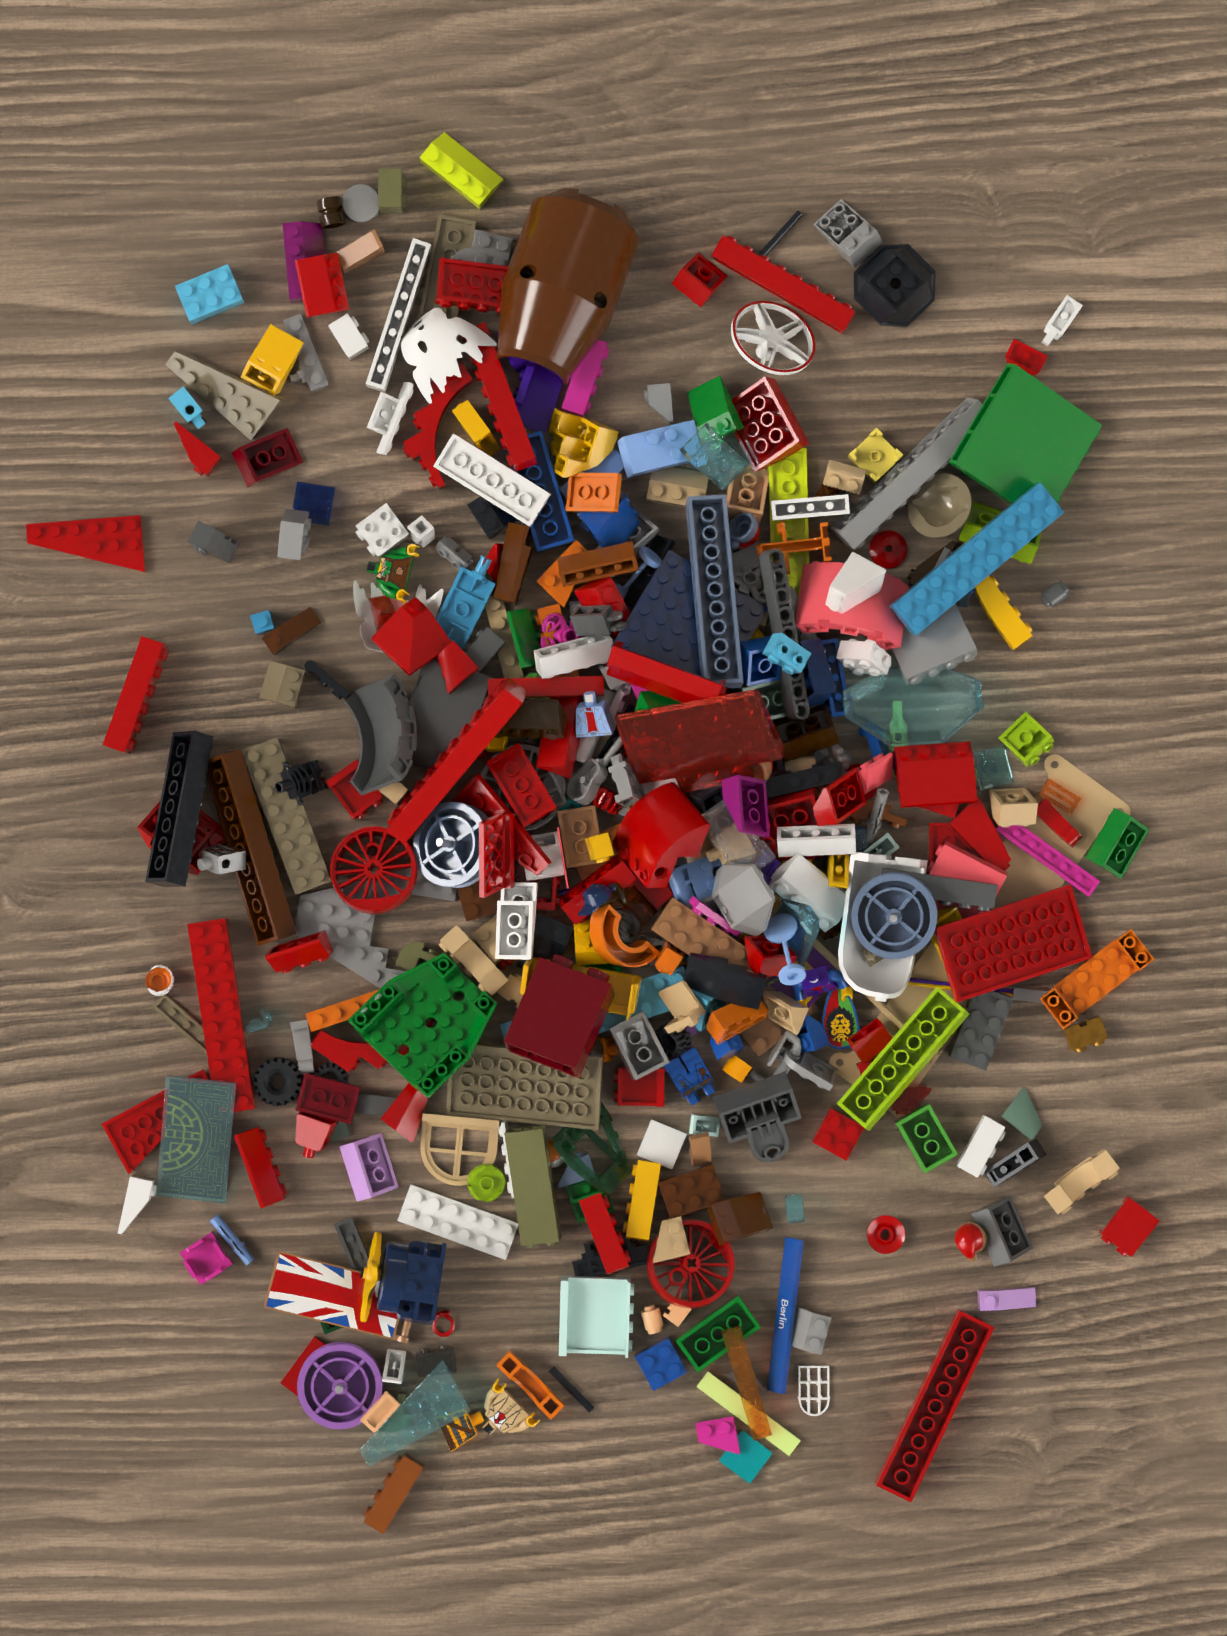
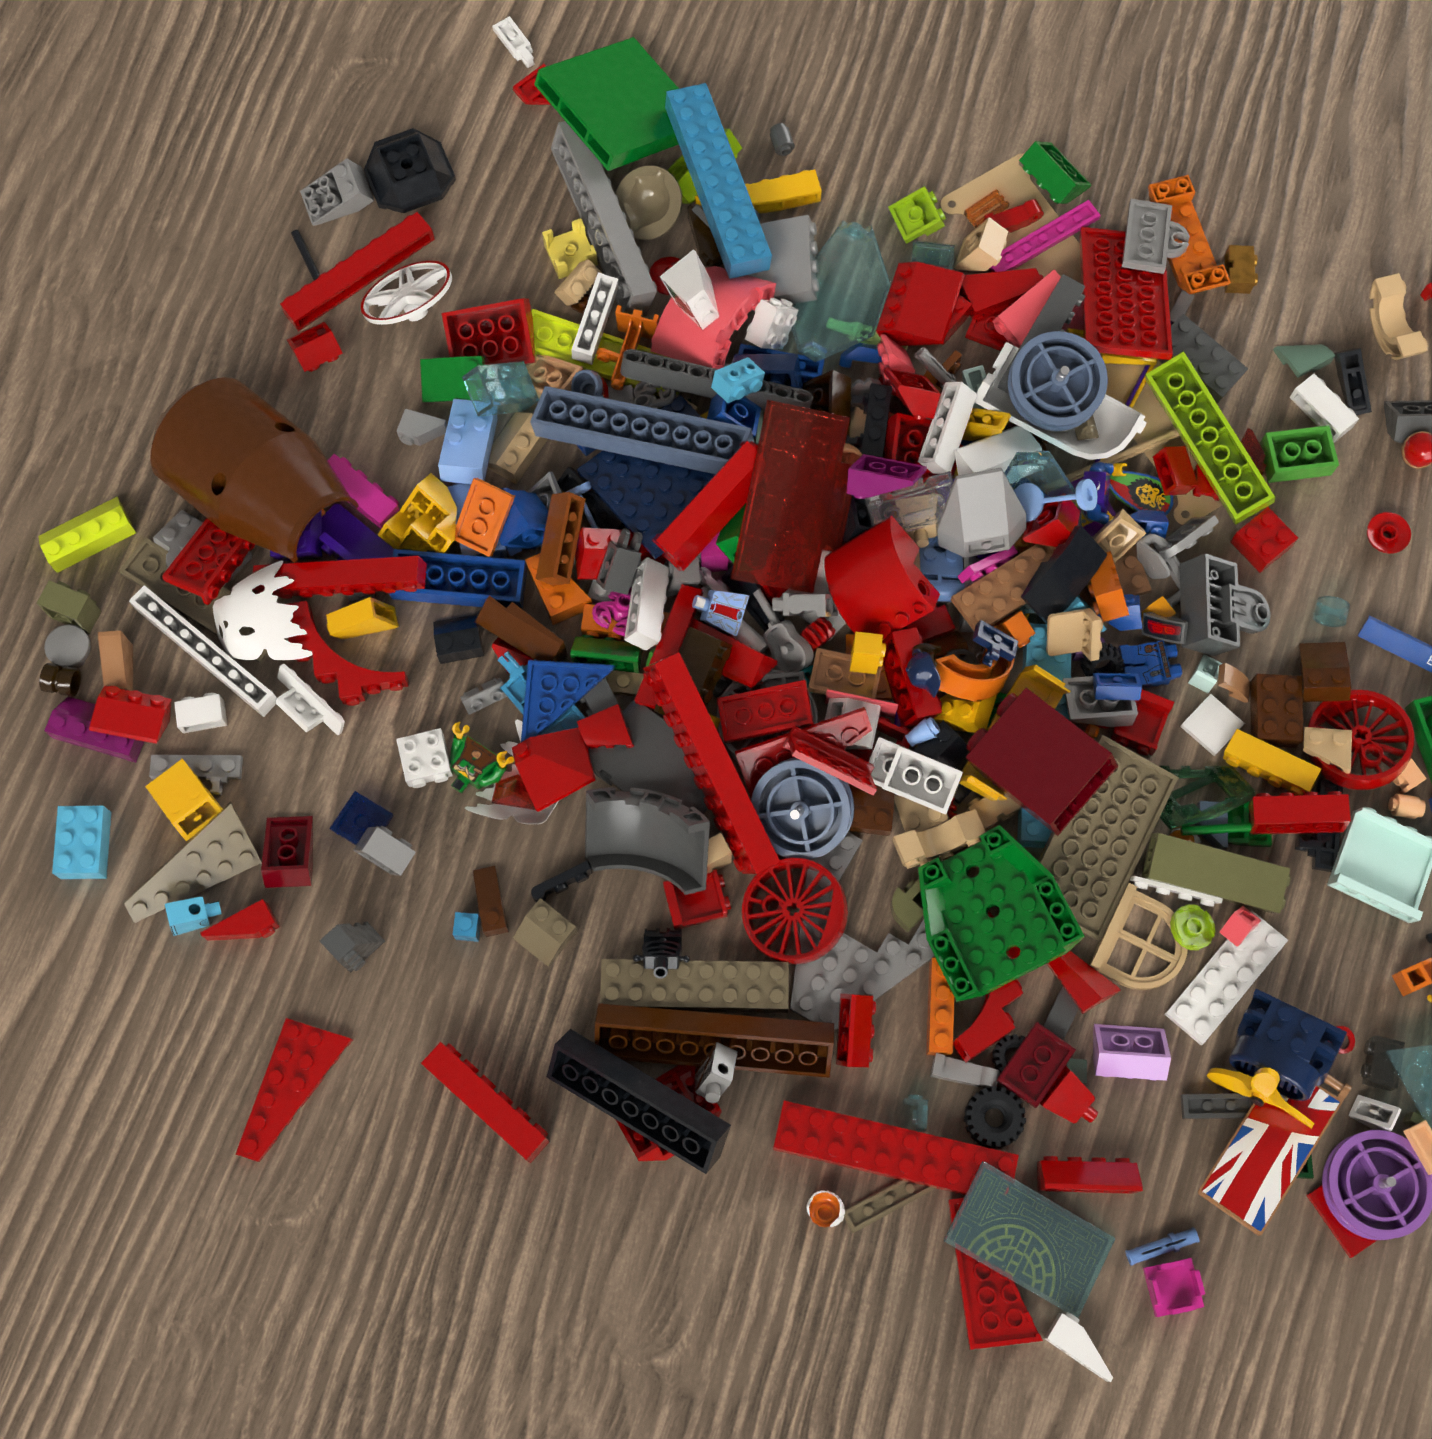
camera: 65 degrees left, 15 degrees down
(421, 531) = (445, 720): white brick -> none
(474, 610) = (554, 689): none -> blue tile
(492, 480) = (422, 617): white plate -> none
(499, 1218) = (1240, 925): none -> coral panel
(555, 916) = (922, 732): none -> light blue cone
(570, 1177) = (1215, 829): none -> green bar
(645, 946) = (996, 643): none -> dark blue plate
(652, 1055) = (1117, 686): none -> blue slope
(722, 1078) = (1164, 628): none -> slope
(1078, 947) = (1152, 237): none -> light grey plate

